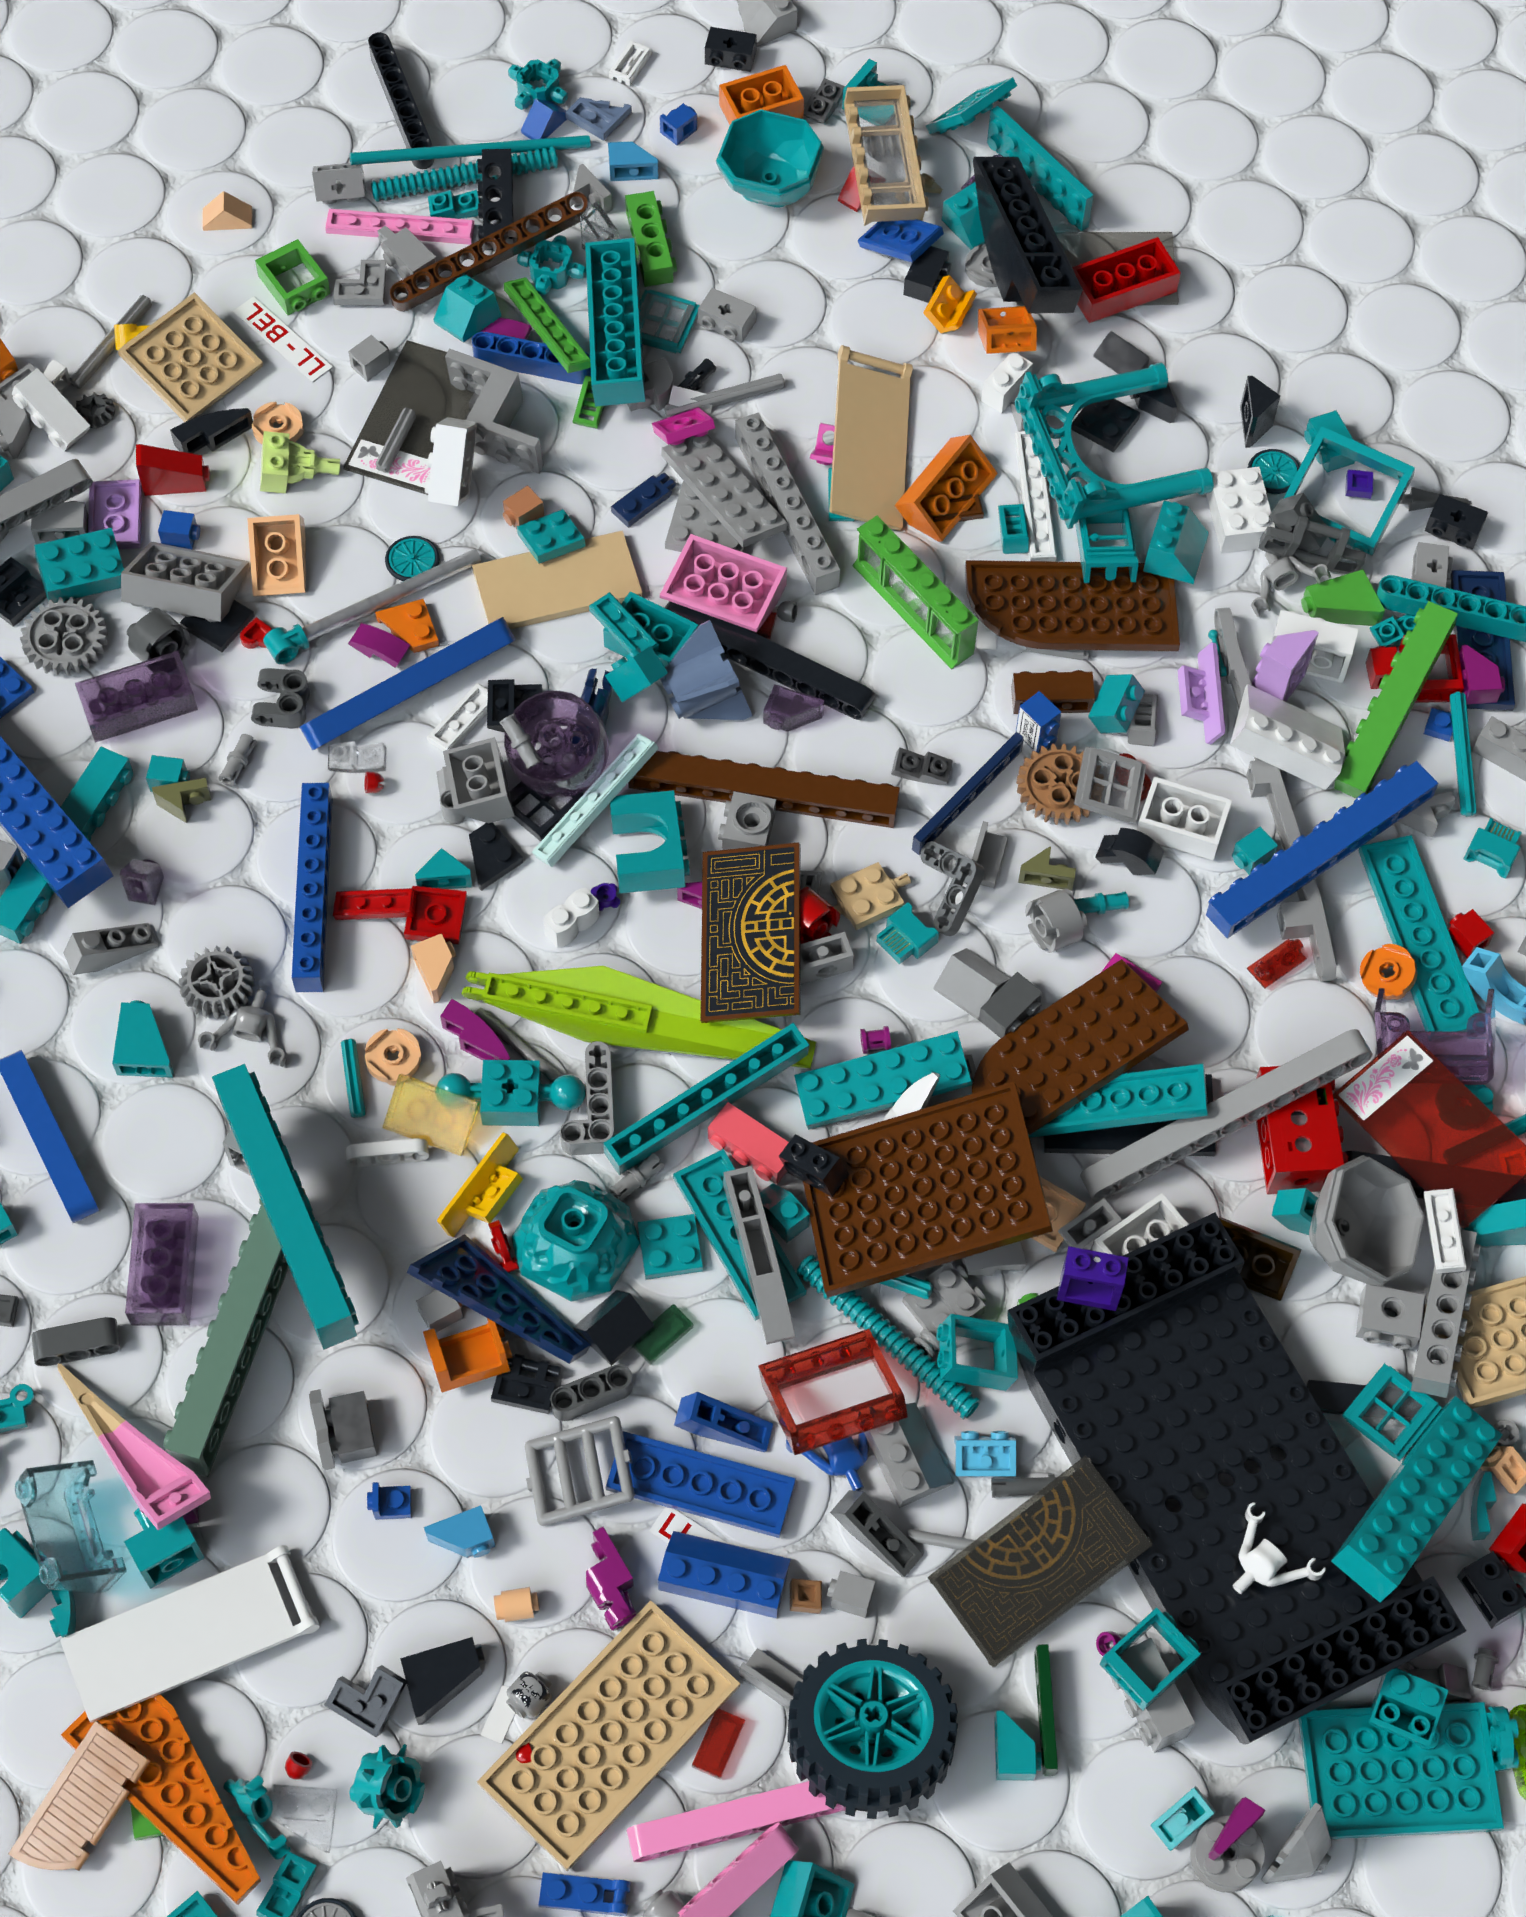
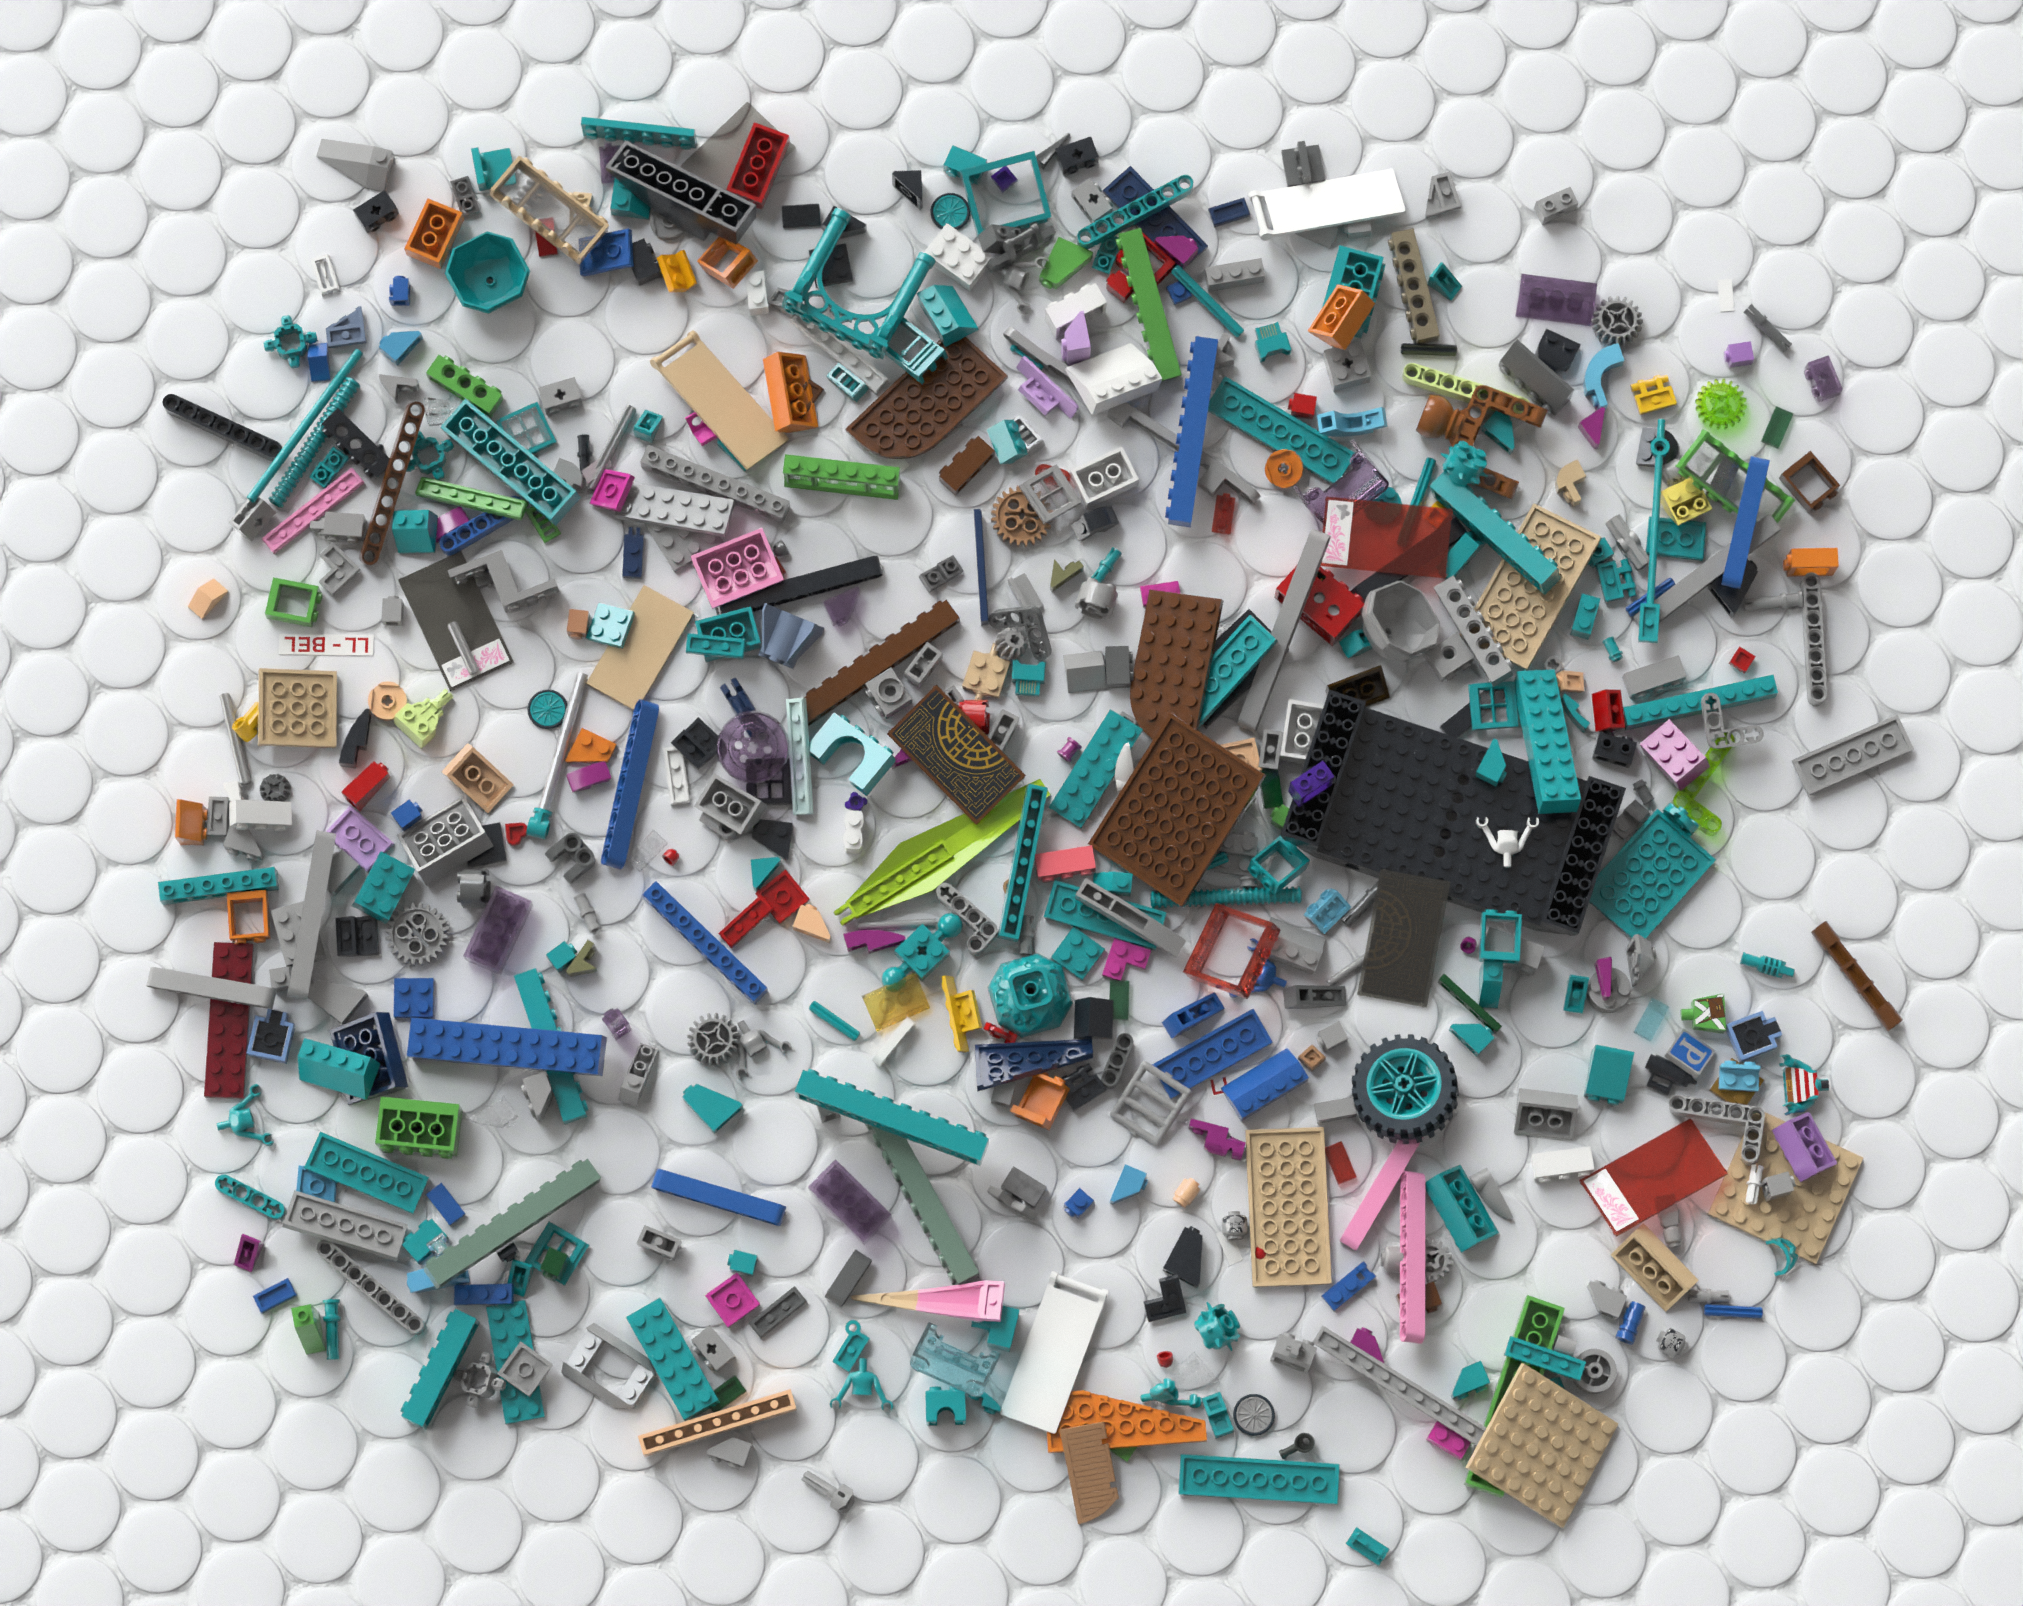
camera: 45 degrees left, 15 degrees up
(377, 1058) = (845, 1001): light nougat plate -> none
(451, 461) = (519, 636): white brick -> none
(520, 741) = (738, 765): light grey pin -> none
(636, 673) = (752, 667): teal brick -> none
(713, 1291) = (1122, 954): none -> dark pink plate
(777, 405) = (647, 426): none -> teal slope
(812, 826) = (923, 665): none -> light grey brick
(813, 1165) = (1111, 847): black brick -> none
(922, 886) = (1011, 643): none -> light grey gear
(966, 110) = (560, 126): teal plate -> none
(1038, 722) = (980, 493): blue brick -> none
(1048, 1270) = (1271, 789): none -> dark green tile
(1090, 1708) = (1490, 984): none -> teal slope
(1254, 850) = (1155, 461): teal brick -> none
(1326, 1461) = (1492, 765): none -> teal slope
(1408, 1706) = (1629, 846): teal slope -> none
(1444, 1231) = (1438, 590): white tile -> none

